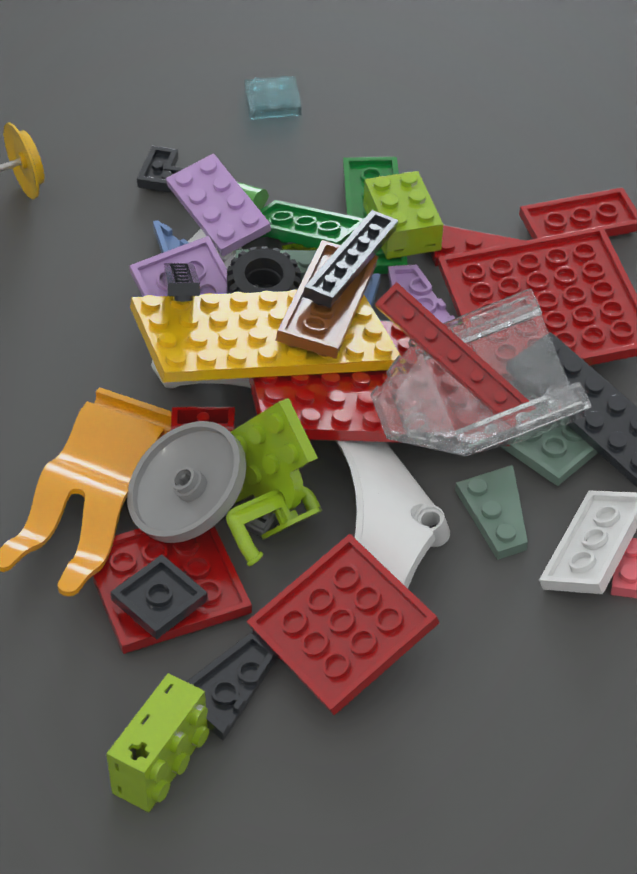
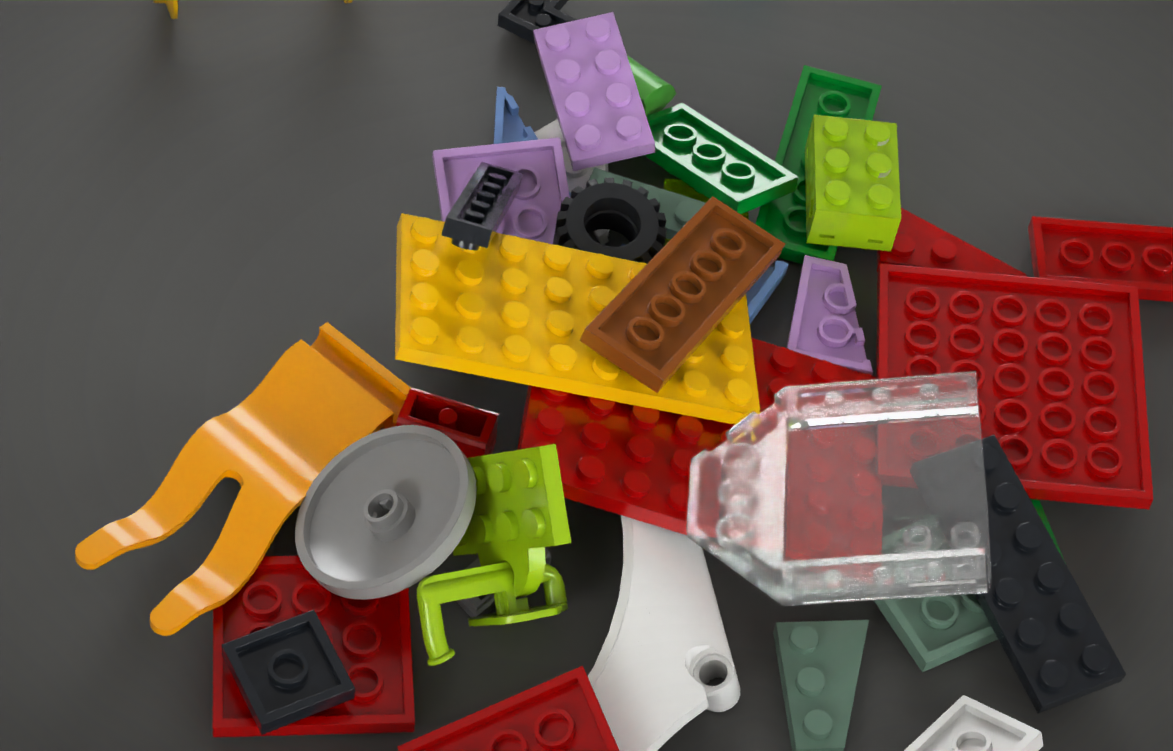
camera: 10 degrees right, 5 degrees up
(350, 259) = (737, 241): plate -> none
(449, 350) = (828, 435): red tile -> none

